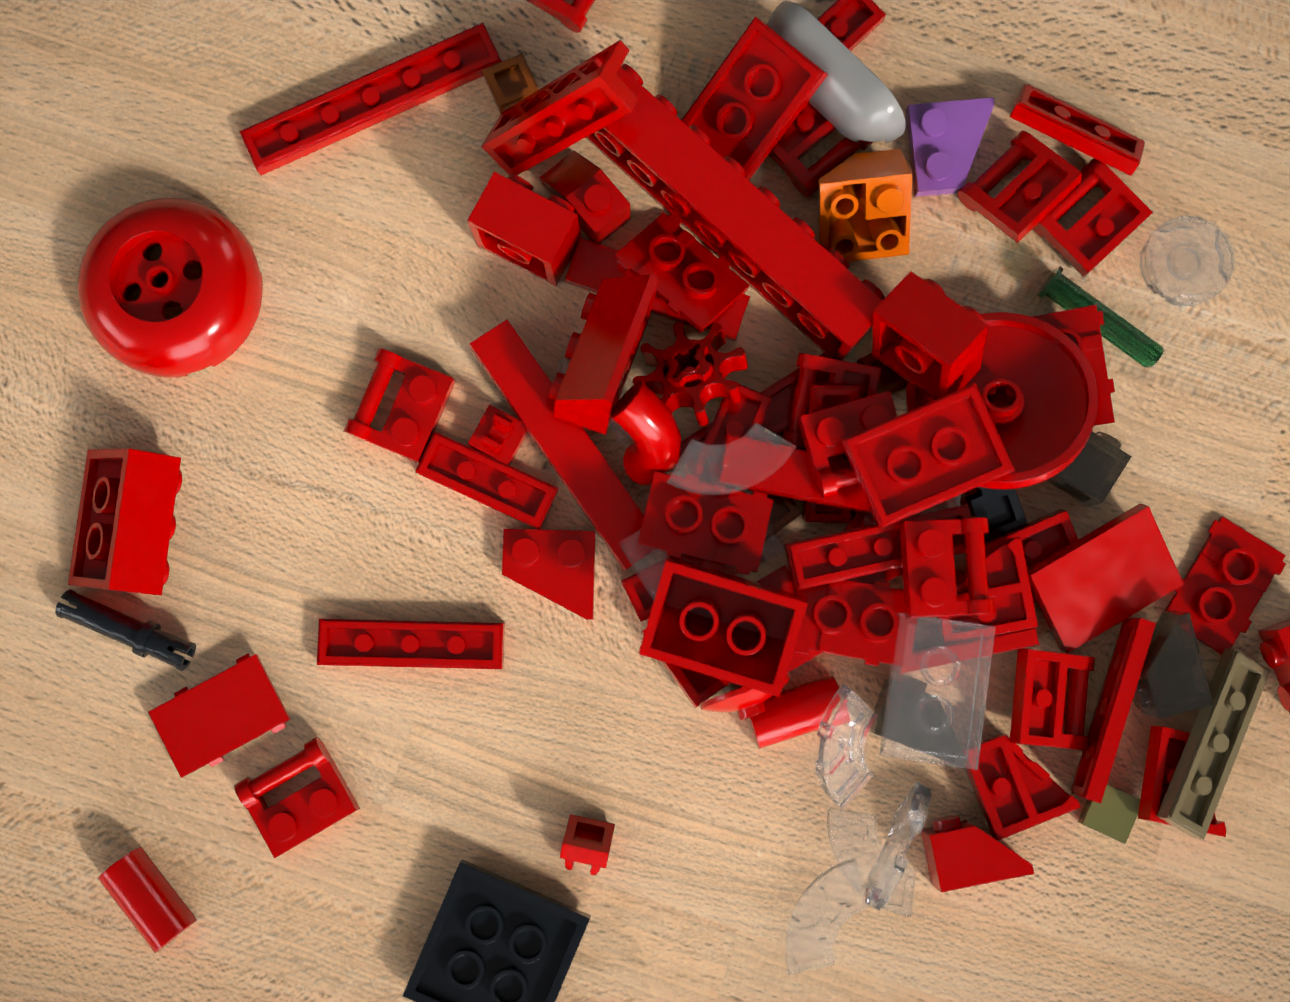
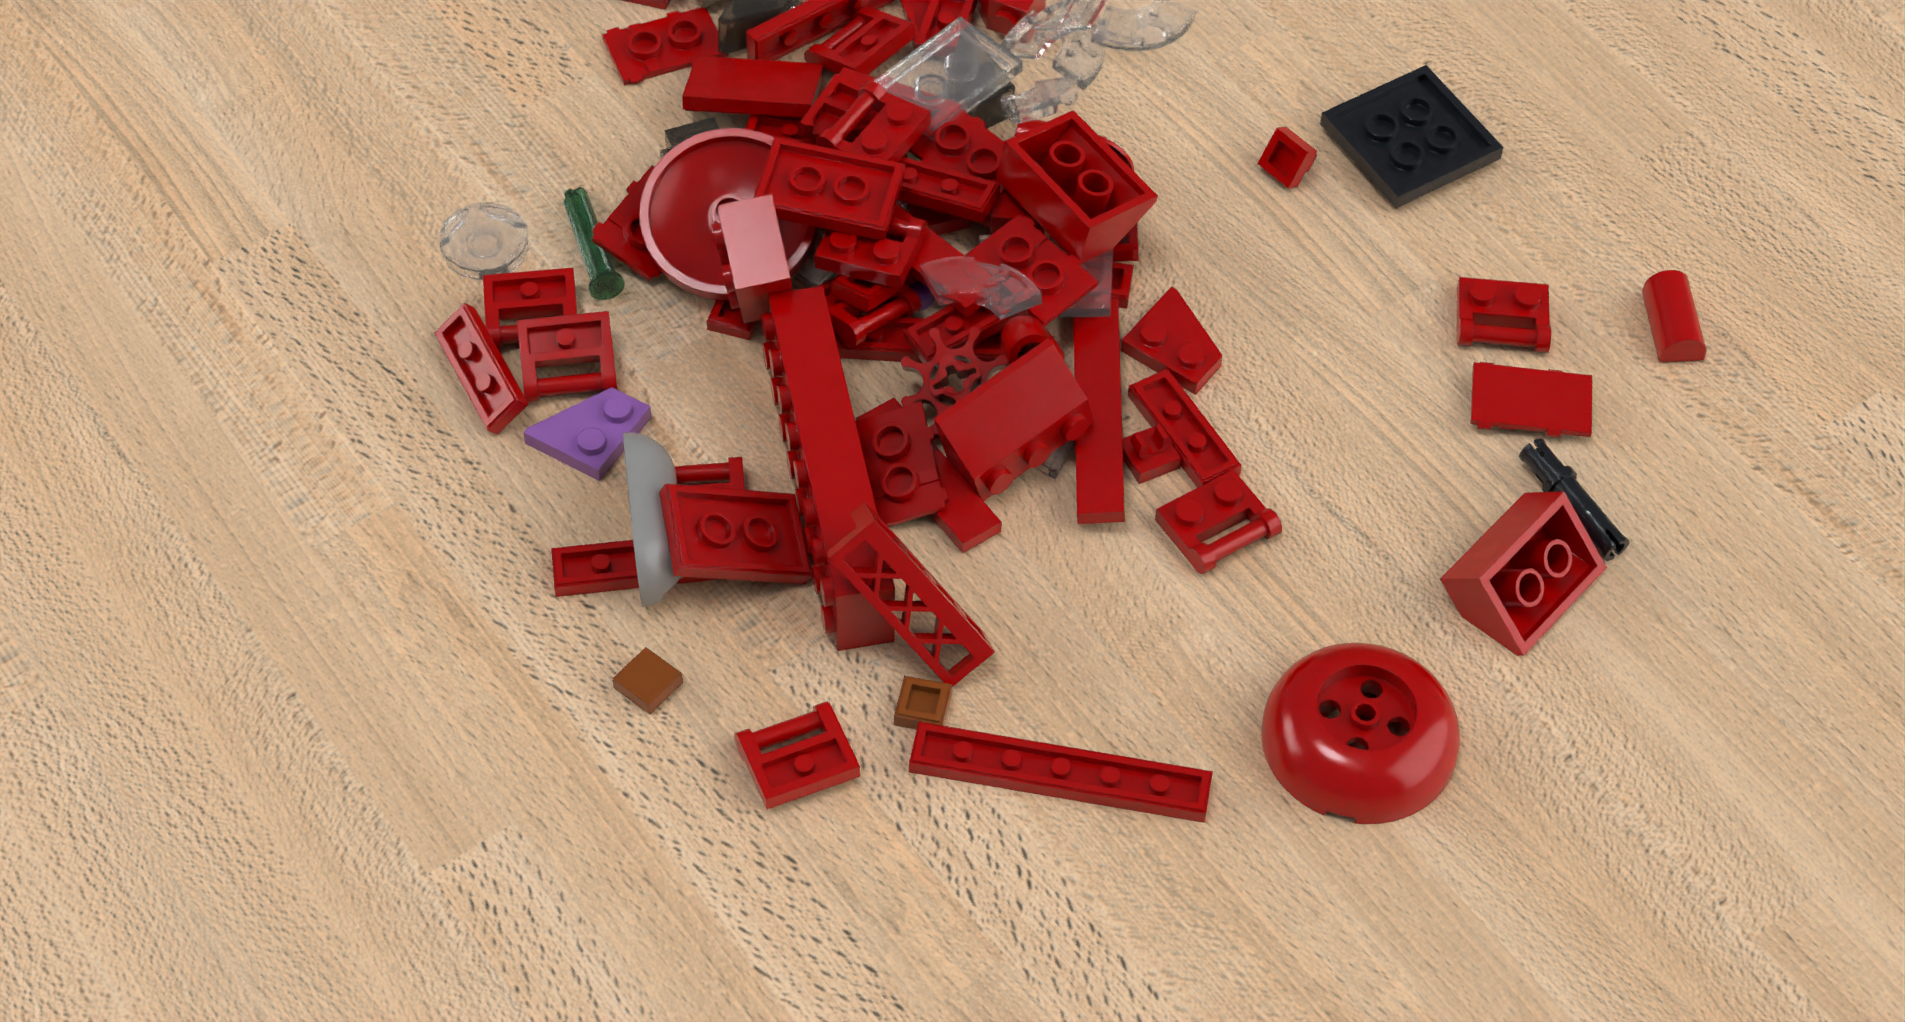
camera: 145 degrees left, 30 degrees down
(410, 644) = (1334, 361): red tile -> none
(525, 227) = (1008, 554): red brick -> none
(592, 194) = (933, 542): red slope -> none
(867, 206) = (699, 413): orange slope -> none

